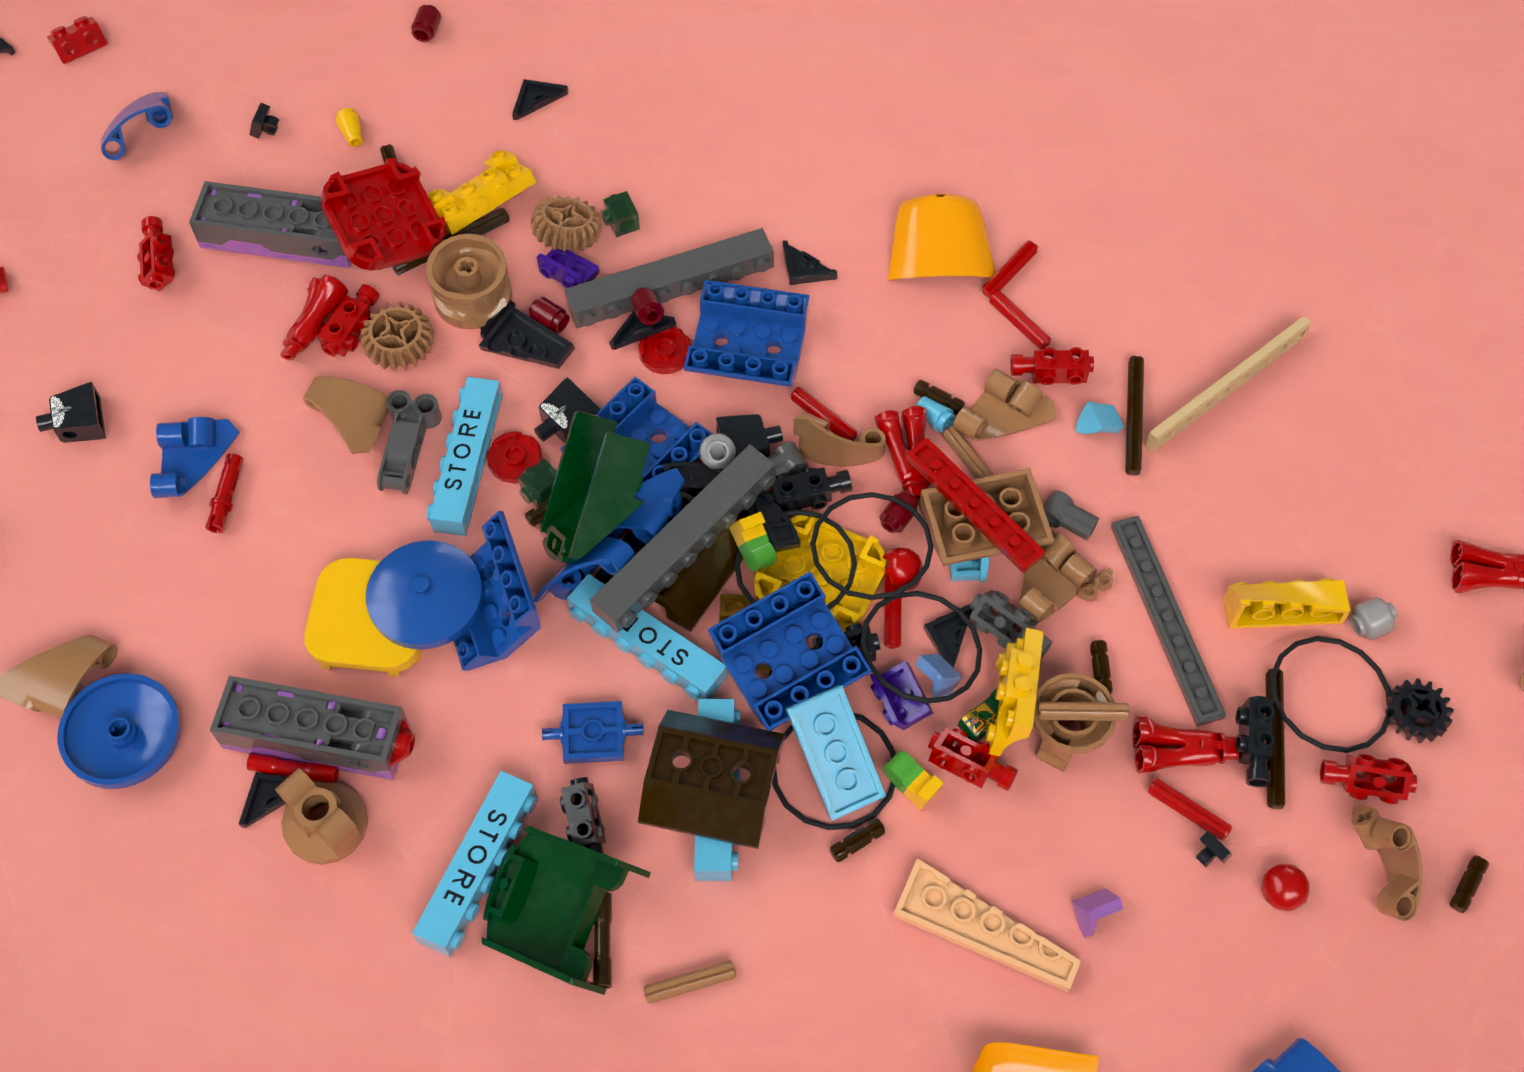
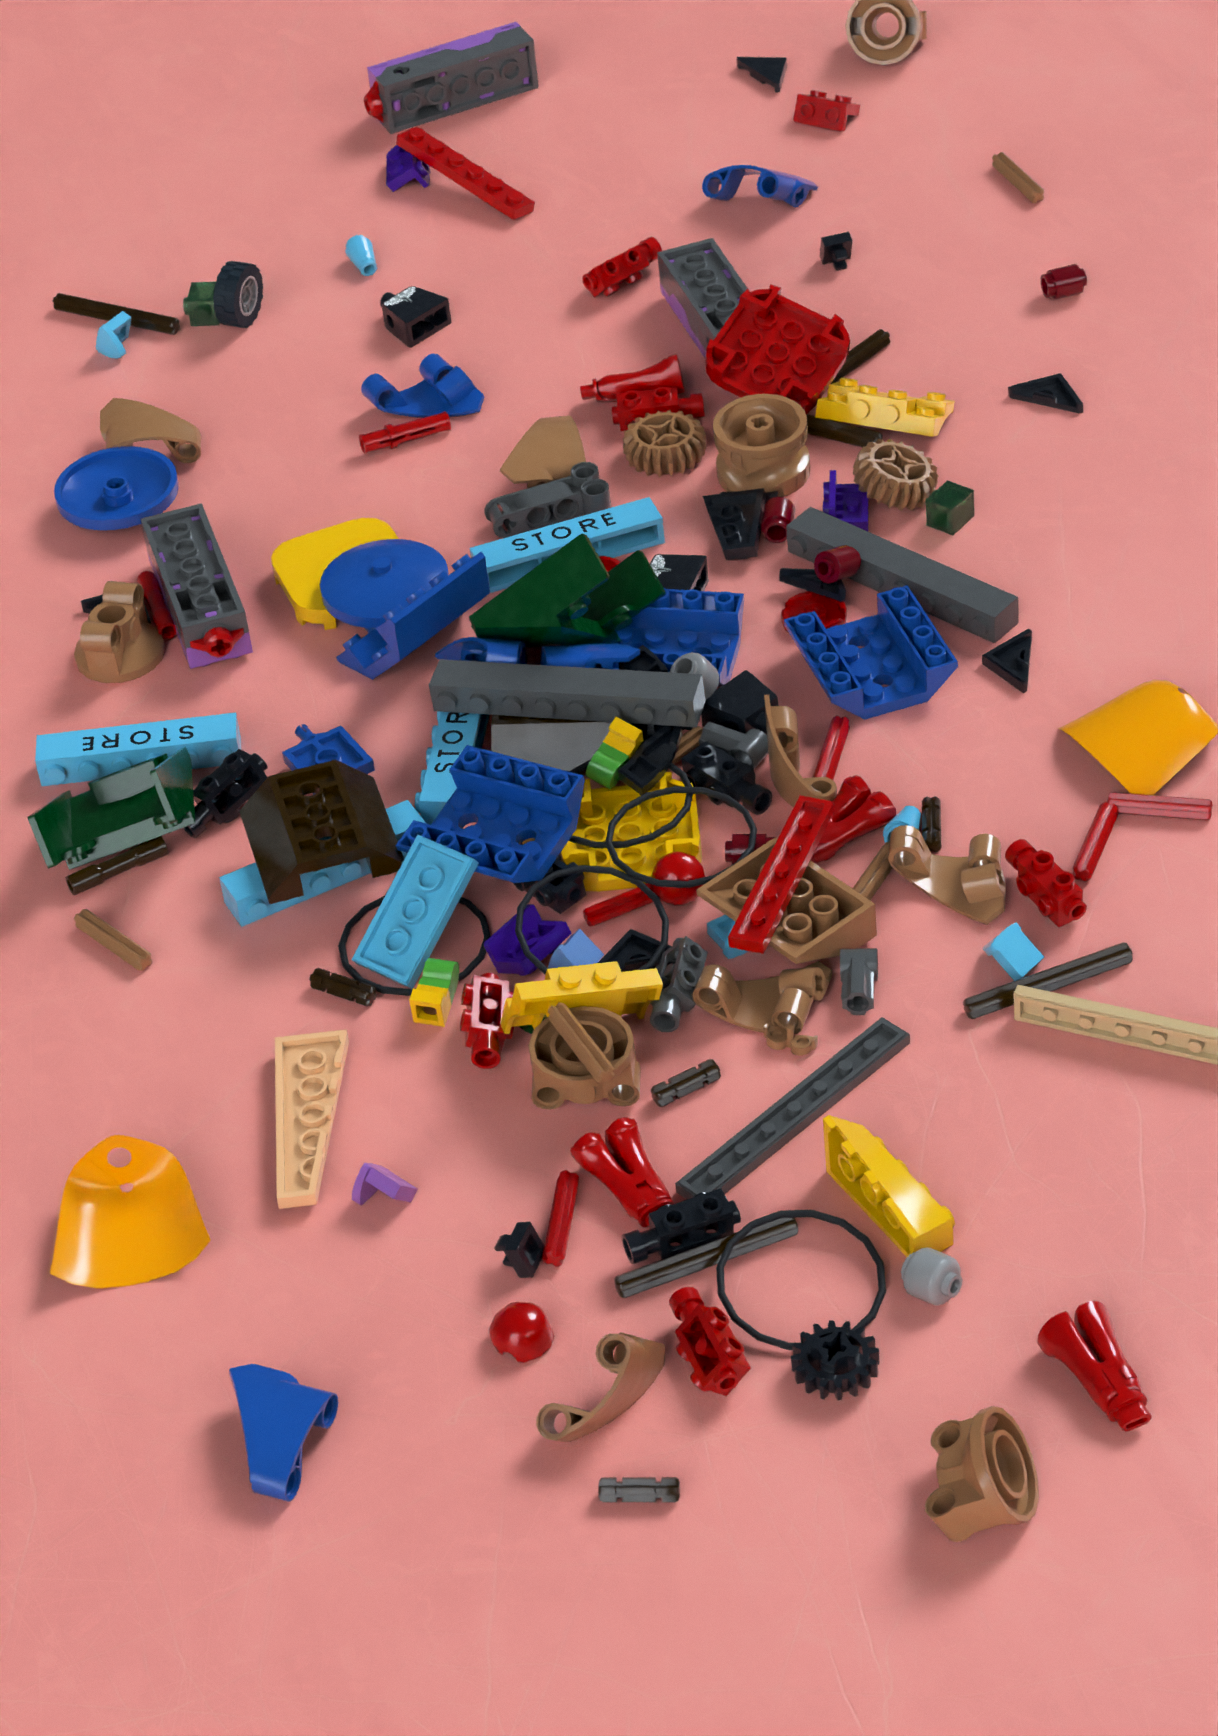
camera: 65 degrees right, 20 degrees down
(350, 126) = (887, 300): yellow cone -> none

